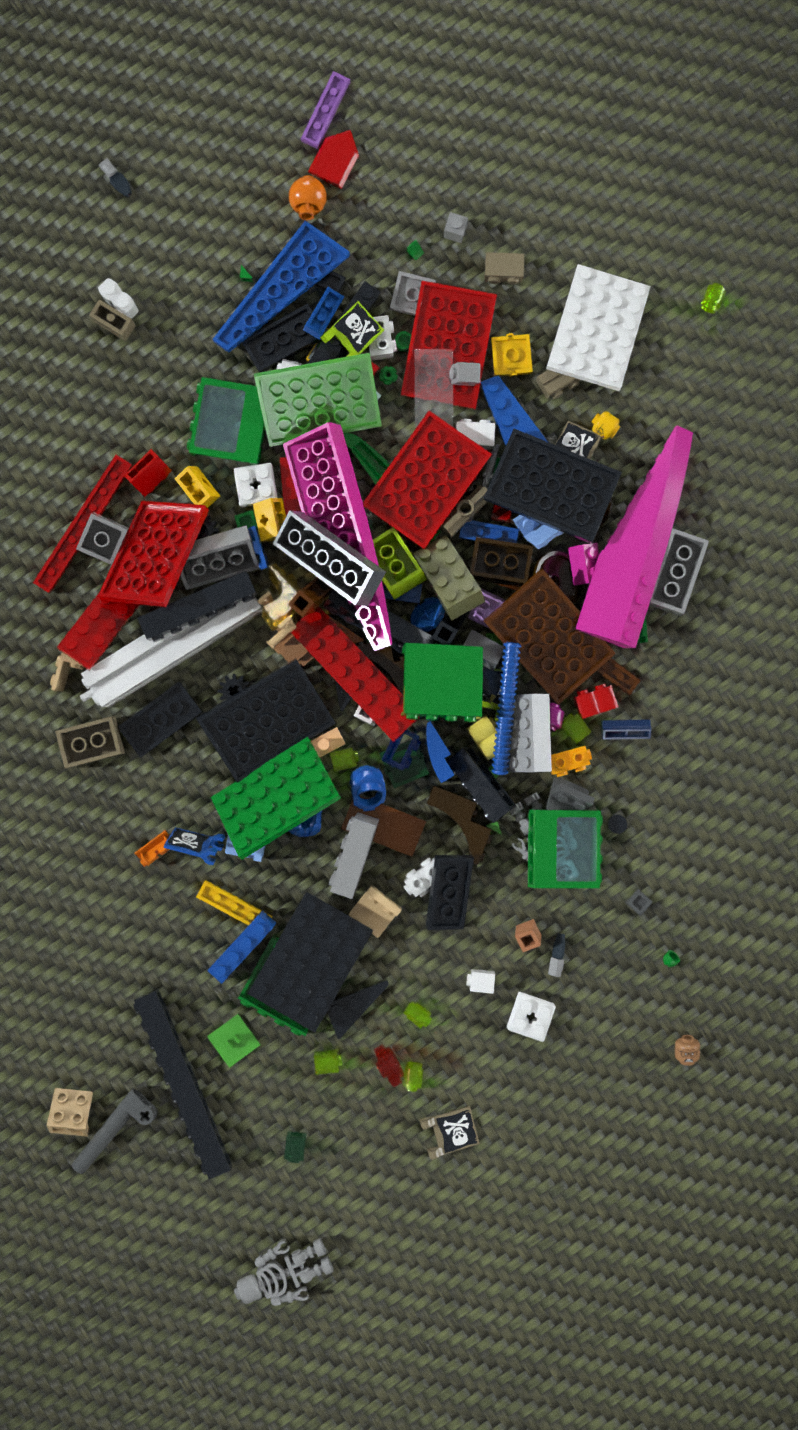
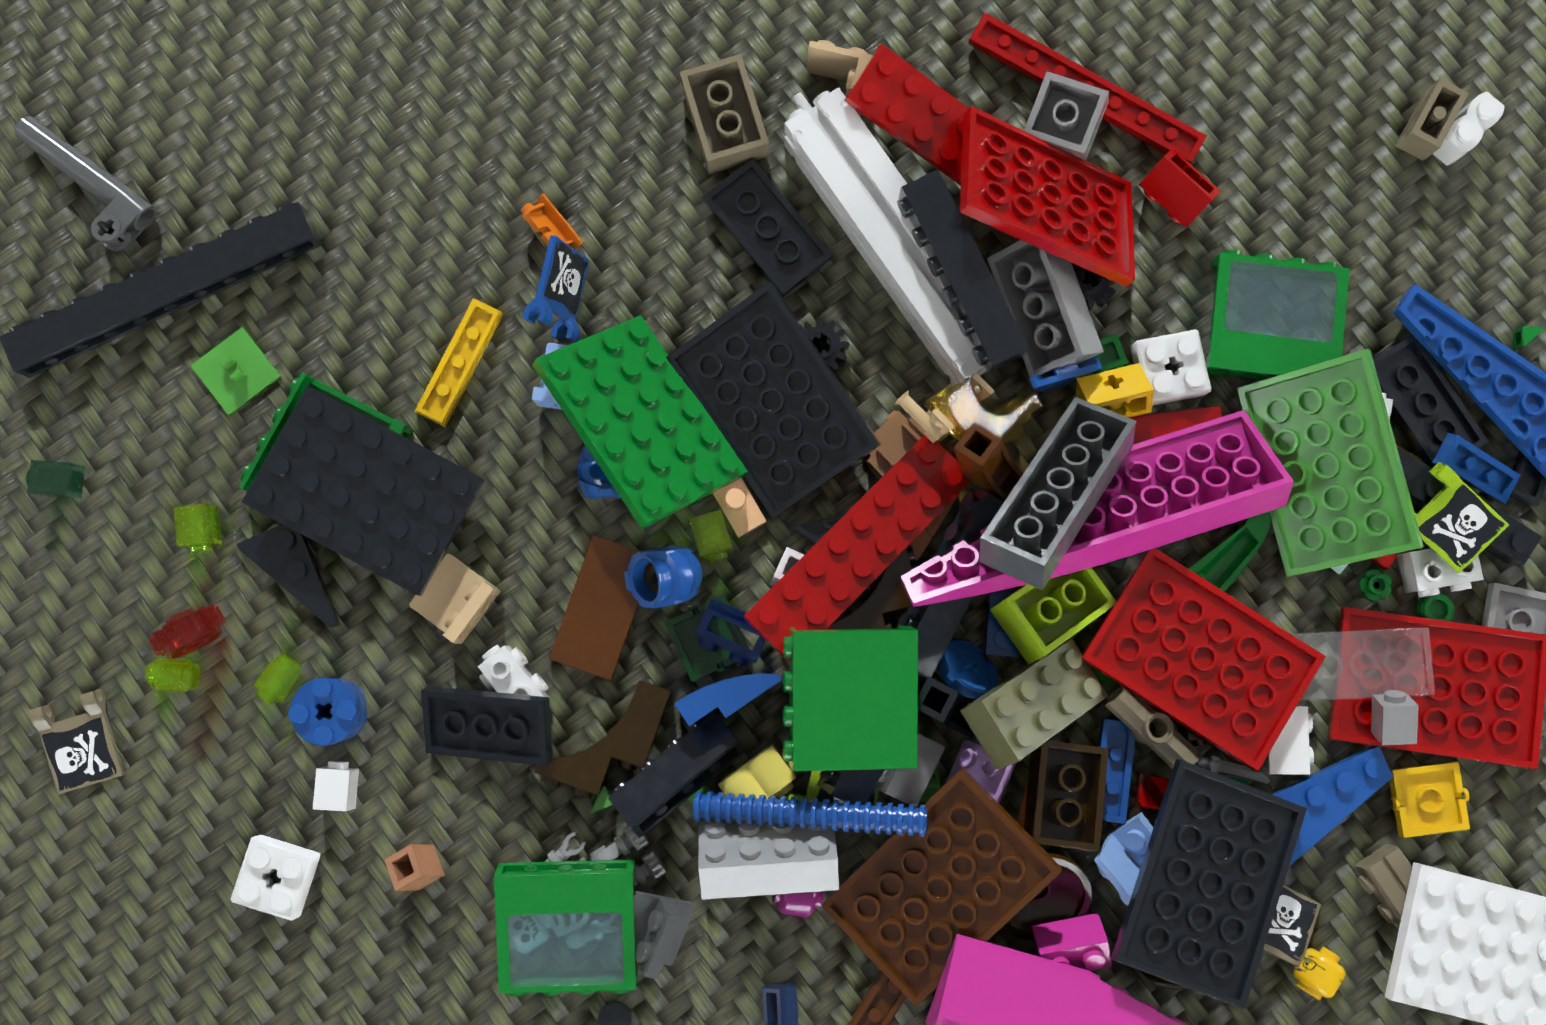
camera: 90 degrees right, 5 degrees down
(70, 1112) = (118, 110): tan bracket -> none
(197, 486) = (1163, 269): yellow brick -> none
(242, 946) = (389, 375): blue brick -> none
(354, 855) = (546, 557): light grey brick -> none
(442, 995) = (309, 711): none -> blue brick
(557, 960) = (374, 920): piece -> none
(570, 759) = (724, 931): light orange brick -> none
(575, 728) = (780, 938): clear neon green brick -> none
(596, 701) = (828, 973): red brick -> none

